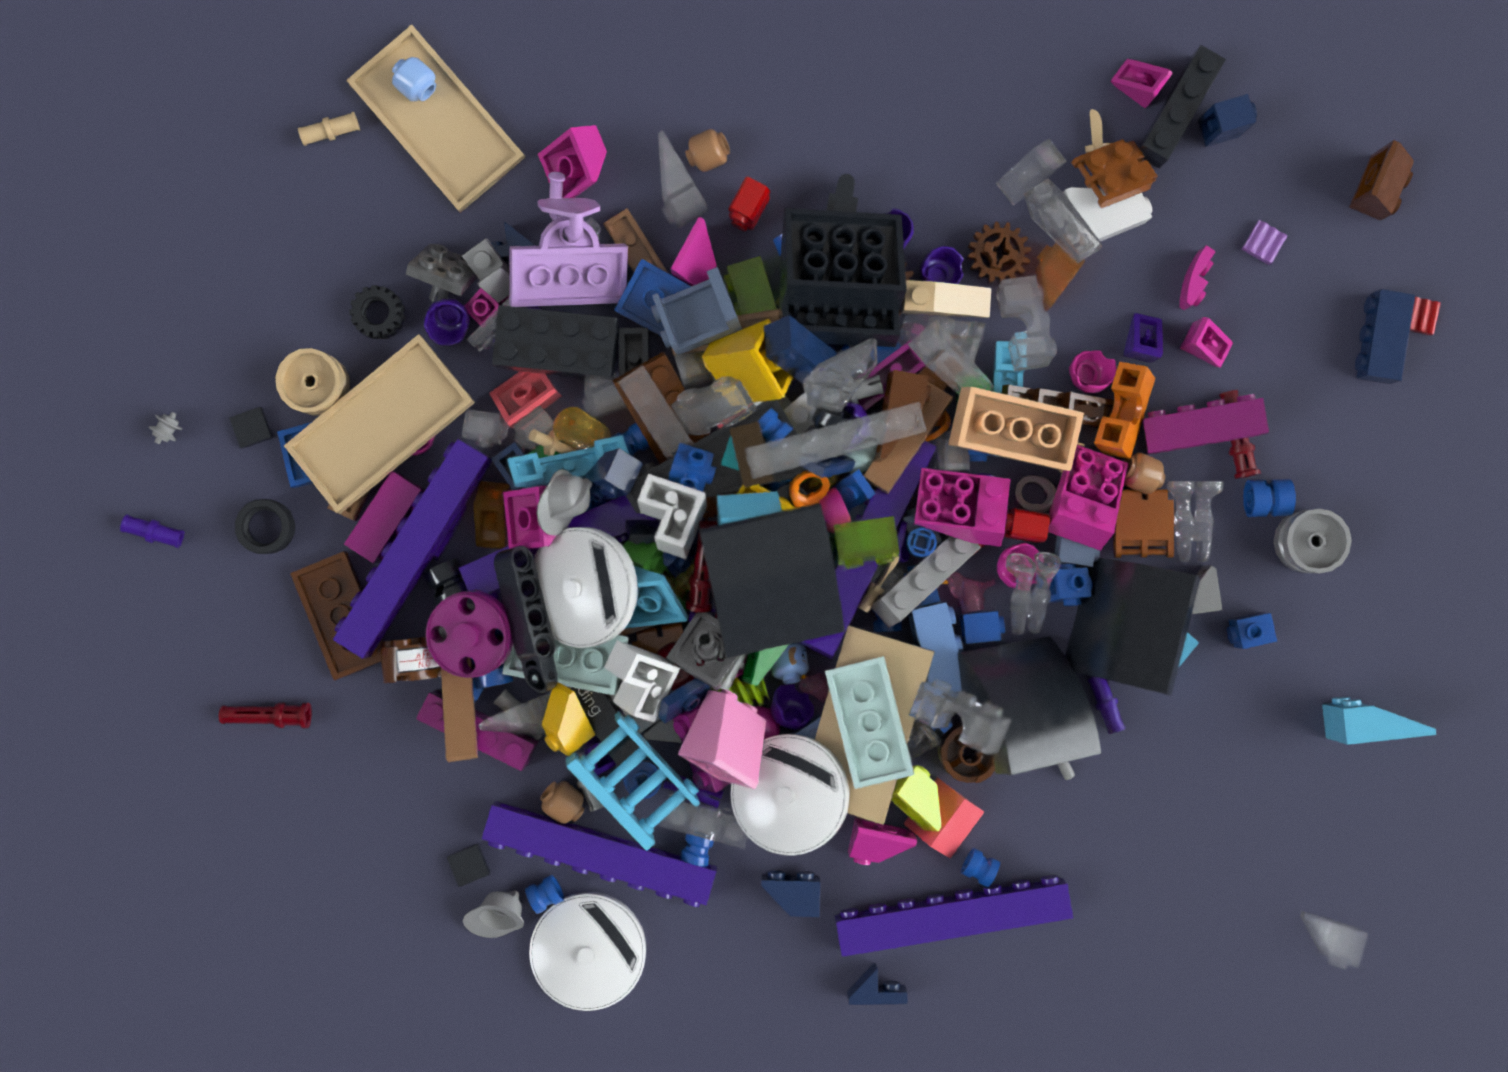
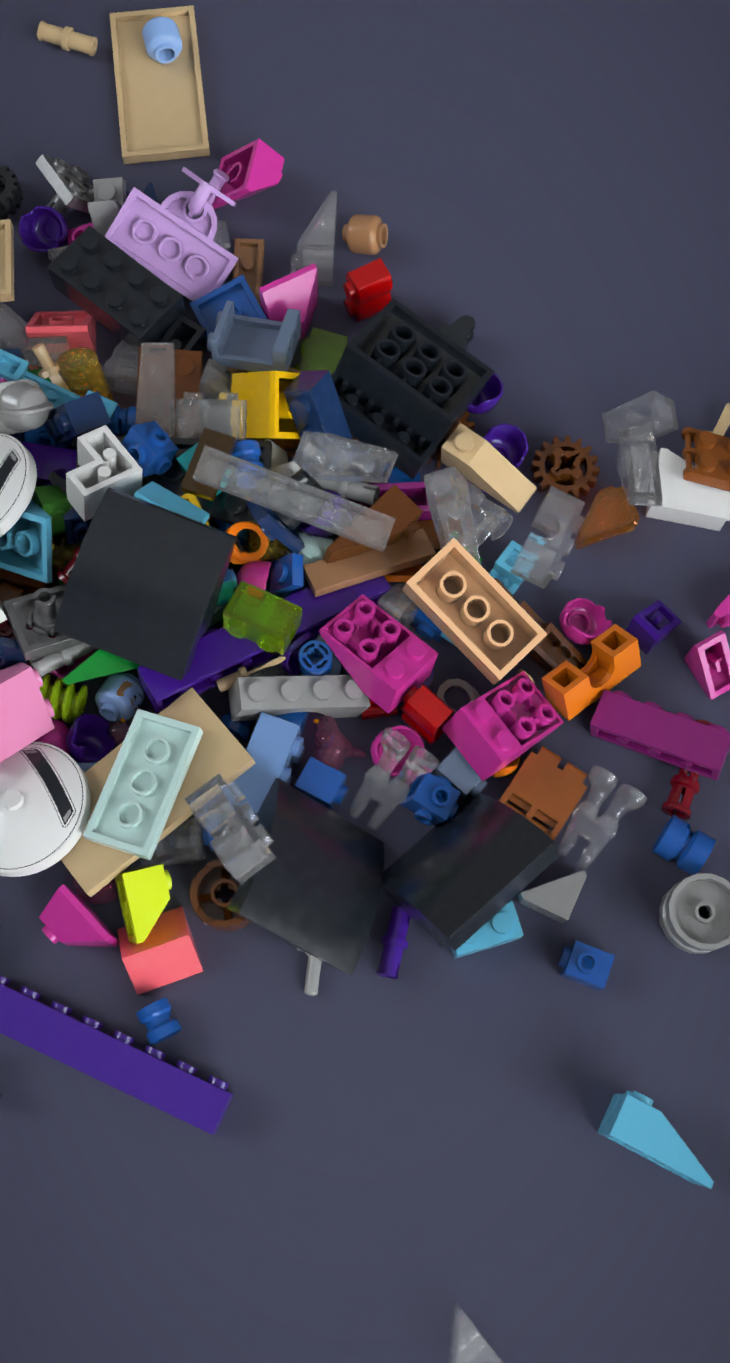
camera: 30 degrees right, 15 degrees down
(1144, 473) = (573, 744): medium nougat head -> none

